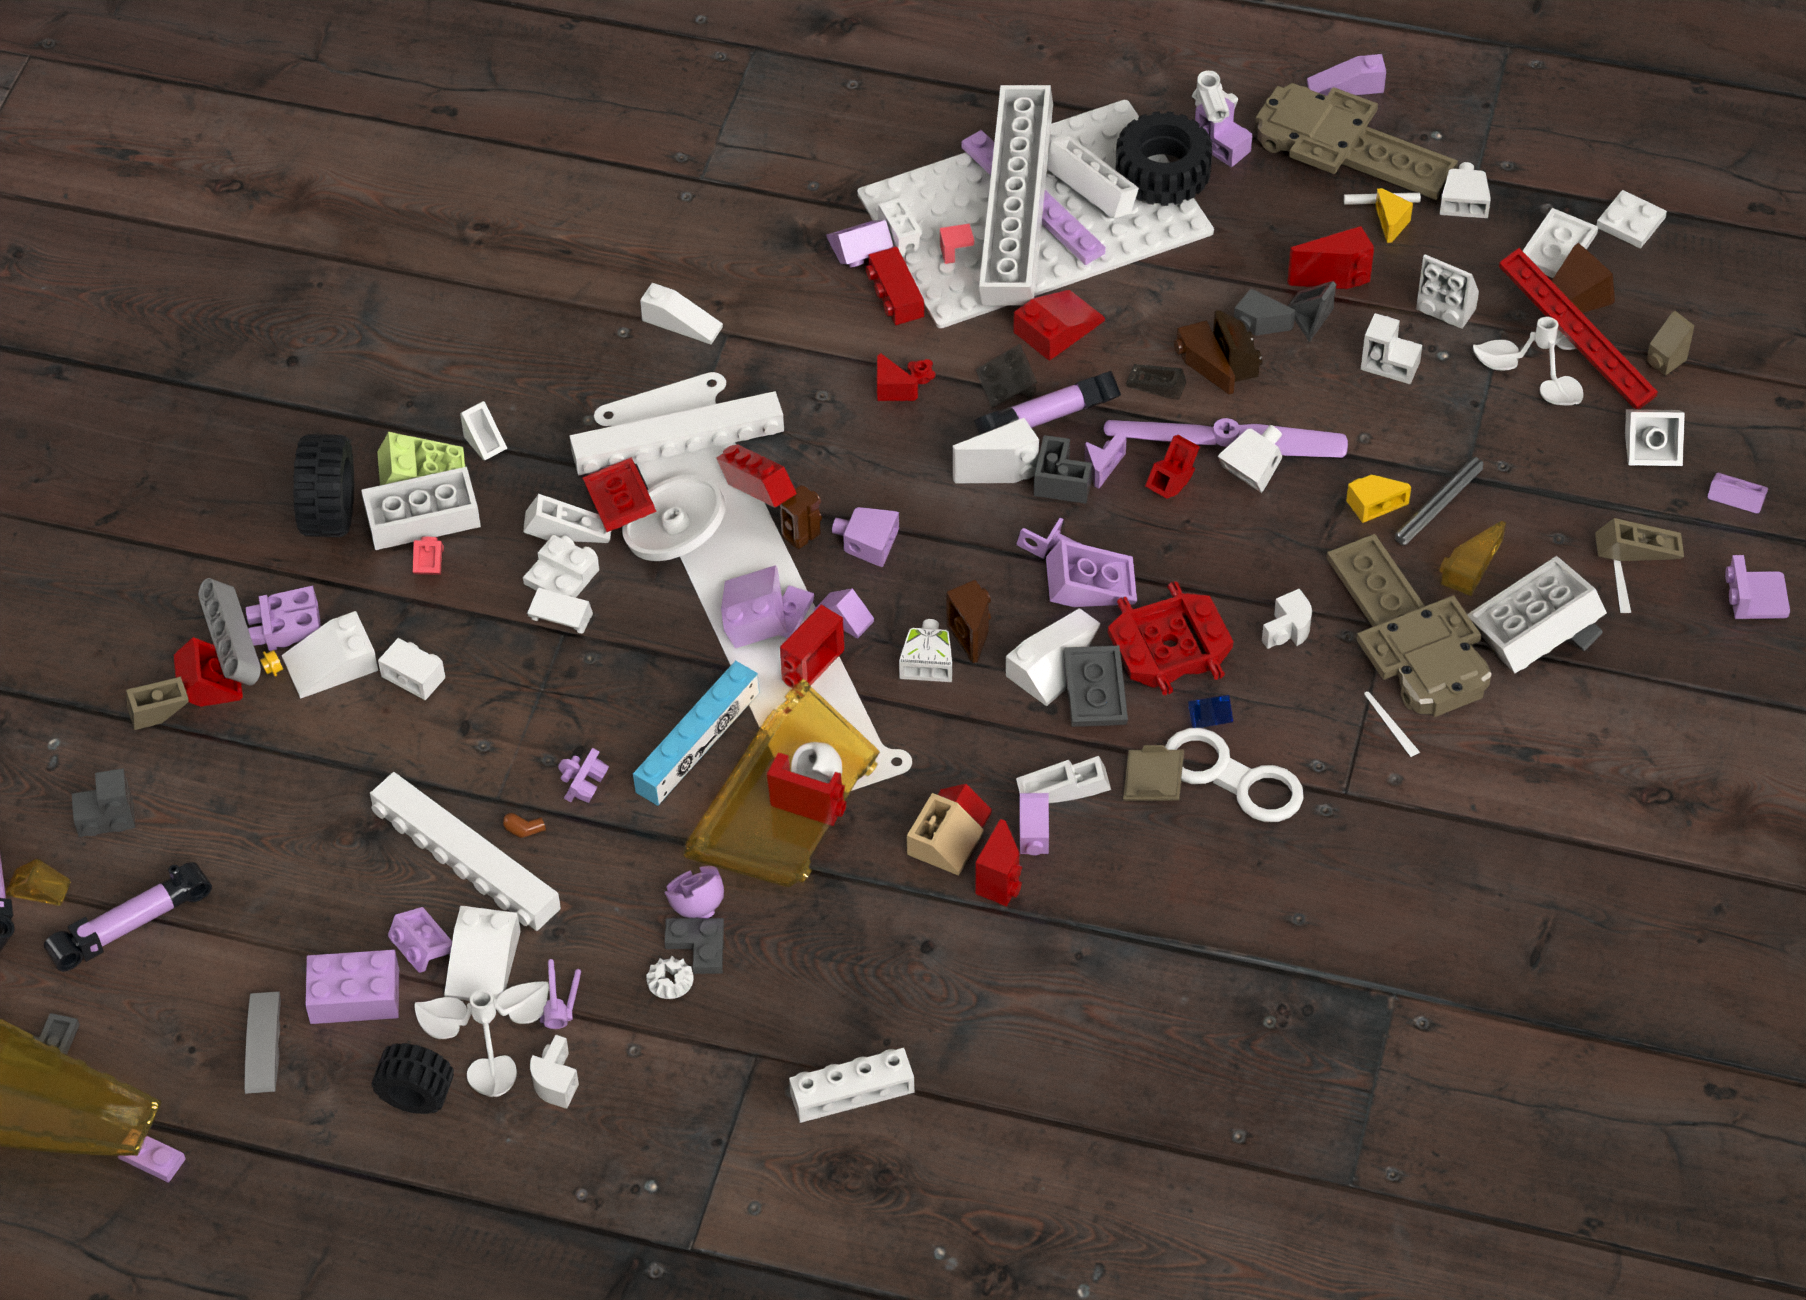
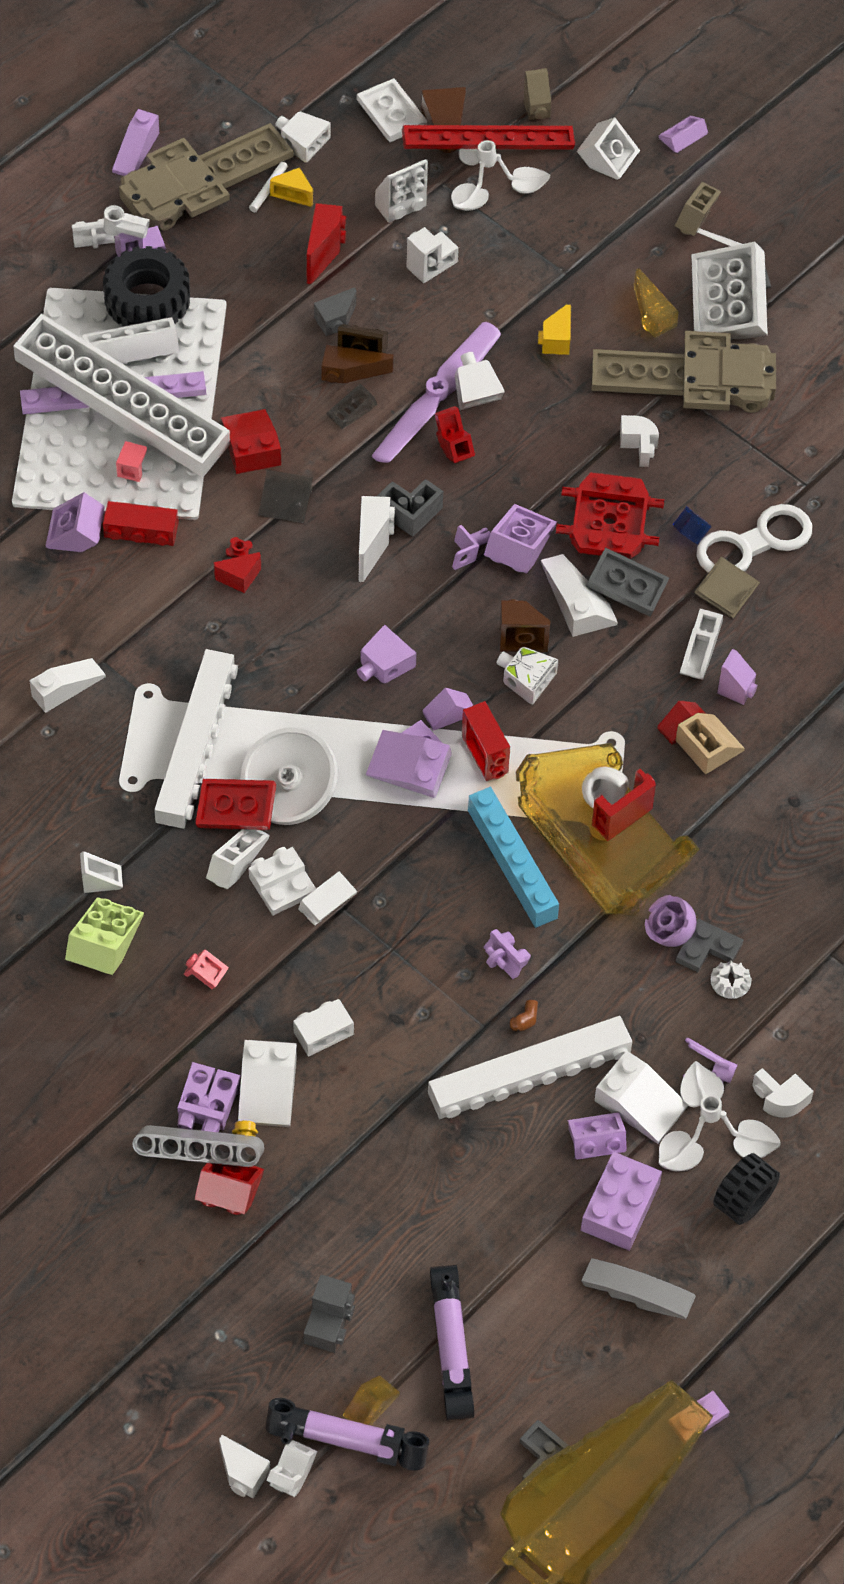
camera: 65 degrees left, 5 degrees up
(155, 702) = (241, 1231): dark tan slope -> none
(323, 485) = (103, 1003): black tyre -> none
(421, 508) = (156, 950): white brick -> none
(756, 475) = (296, 696): red brick -> none
(801, 517) = (346, 690): reddish brown brick -> none
(901, 224) = (95, 485): white hinge -> none
(999, 867) = (762, 715): red slope -> none
(1055, 404) = (343, 457): piece -> none
(1105, 459) = (411, 473): lavender slope -> none
(1313, 307) = (350, 274): dark grey slope -> none
(1402, 738) = (779, 428): white sticker -> none
(1438, 501) = (582, 299): dark grey axle -> none
(1631, 219) = (394, 58): white plate -> none
(1756, 593) = (781, 168): lavender bracket -> none

